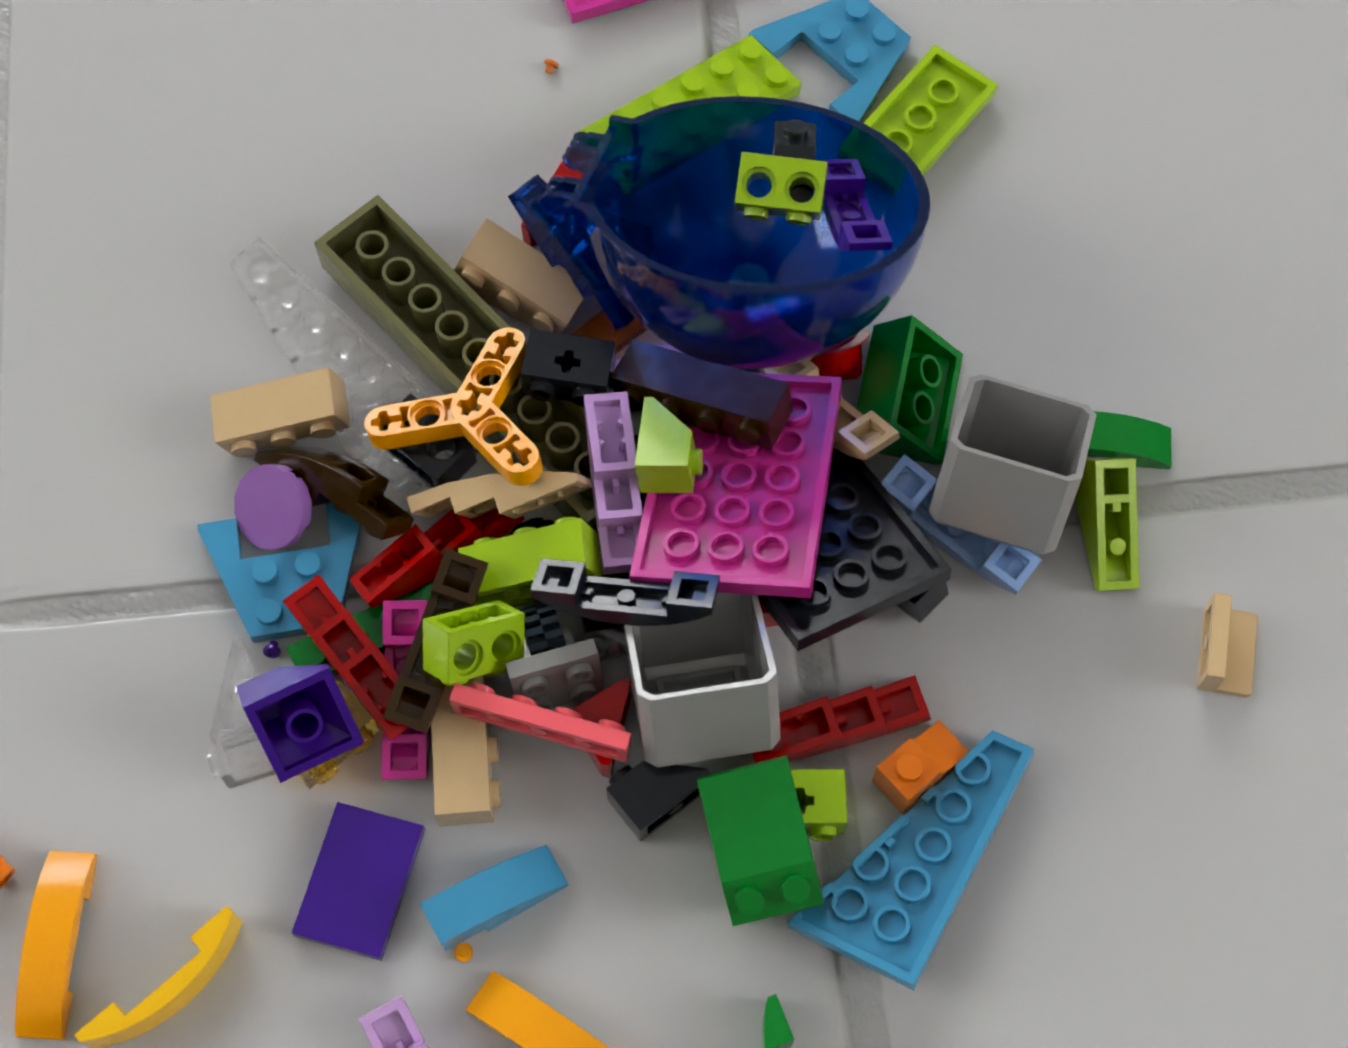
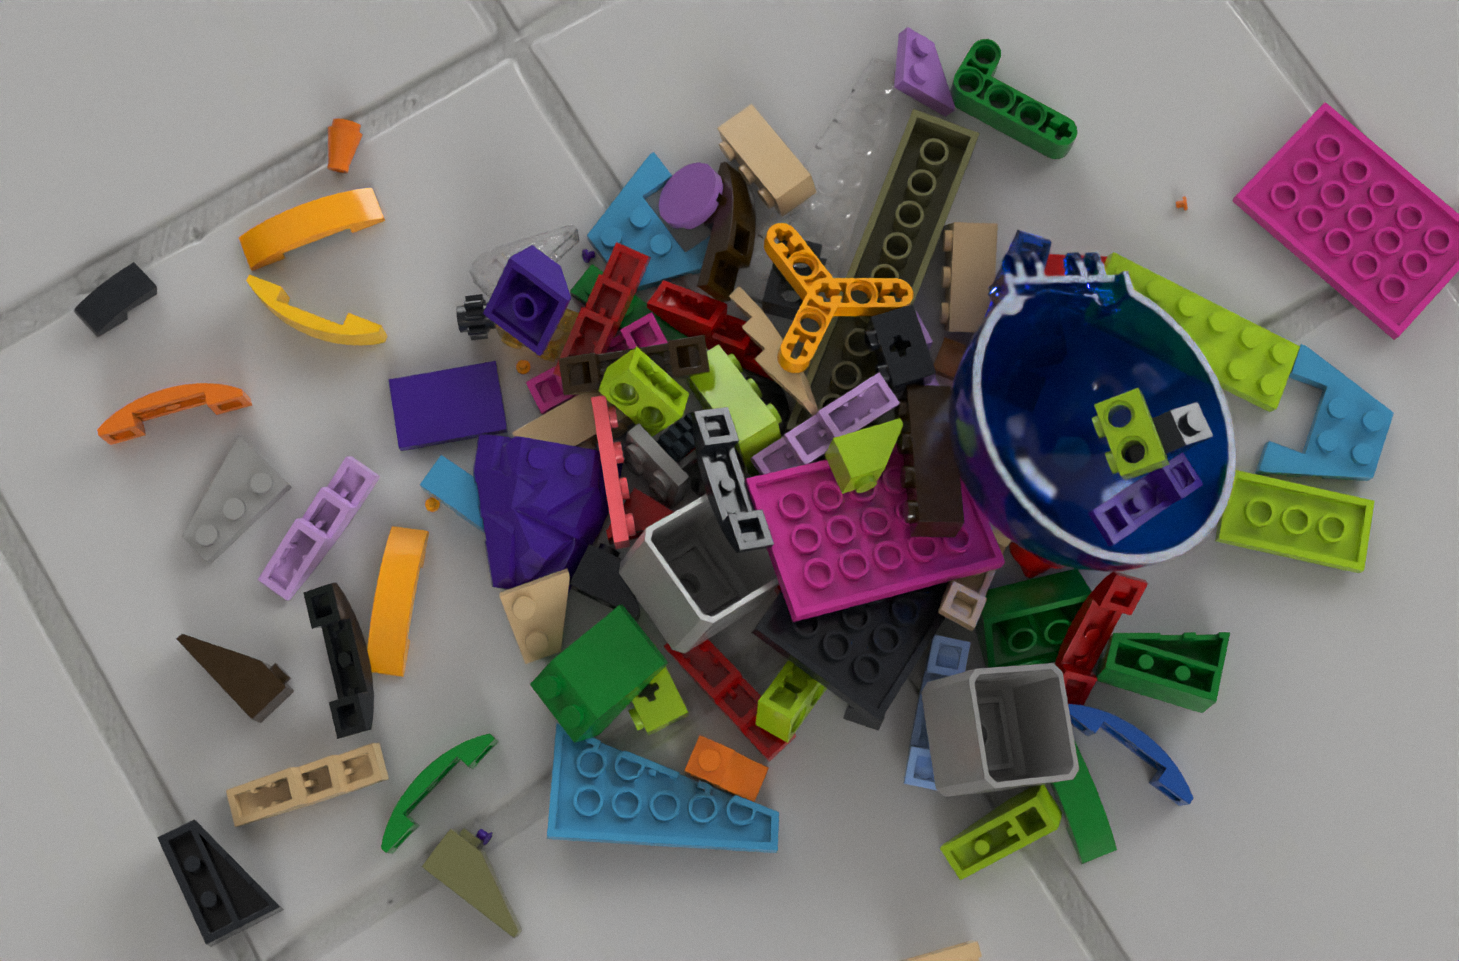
camera: 60 degrees right, 10 degrees up
(274, 226) = (921, 73): none -> medium lavender wing
(276, 800) = (471, 318): none -> black gear
(359, 778) = (523, 367): none -> light orange piece
(408, 140) = (1015, 103): none -> green beam
(537, 829) = (537, 506): none -> dark purple wedge
(655, 883) = (538, 614): none -> tan wing
(881, 659) = (788, 701): none -> lime brick
(938, 328) = (1092, 629): none -> red slope
(1013, 293) = (1166, 667): none -> green wedge
(1118, 345) = (1167, 778): none -> blue slope

